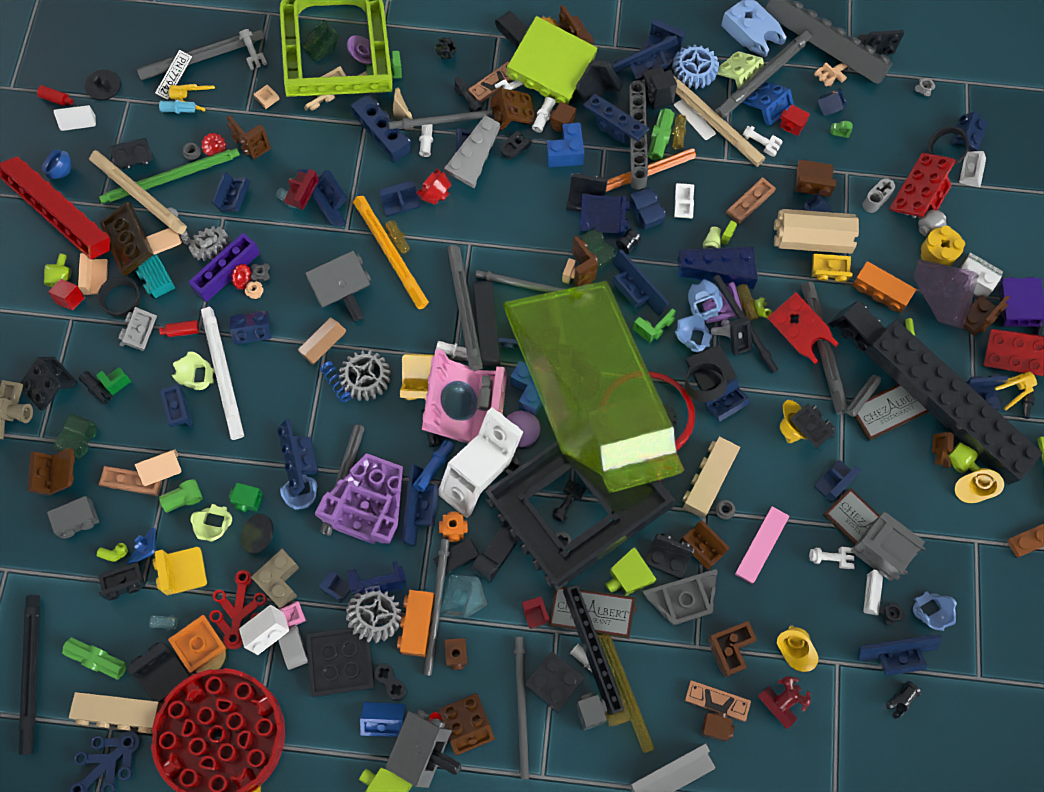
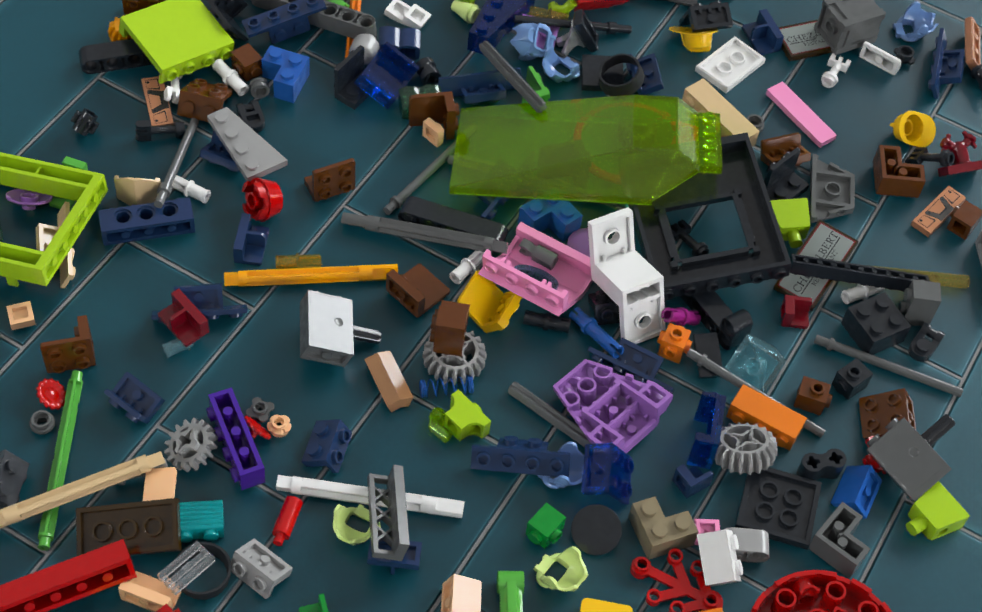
camera: 70 degrees left, 15 degrees down
(123, 295) = (189, 577): none -> clear tile
(200, 390) = (397, 520): none -> dark grey fence
(300, 390) = (436, 424): none -> clear neon green arm
(301, 522) = (607, 472): none -> clear blue bracket
(314, 405) = (466, 418): none -> lime brick
(320, 713) = (837, 544): none -> dark grey brick
(372, 359) = (449, 327): none -> reddish brown brick
(412, 324) = (416, 289): none -> reddish brown bracket
(478, 522) = (680, 316): none -> magenta pin
(480, 223) = (331, 180): none -> reddish brown bracket
(488, 679) = (852, 379): none -> black brick
(543, 137) = (259, 87): none -> dark grey bush
(554, 730) = (921, 348): none -> black plate
(619, 185) = (370, 46): none -> light grey head
(646, 300) = (513, 77): none -> dark grey axle
(770, 685) = (921, 154): none -> black hinge
(785, 466) = (730, 64): none -> white tile
(944, 672) = (972, 43): none -> nougat tile

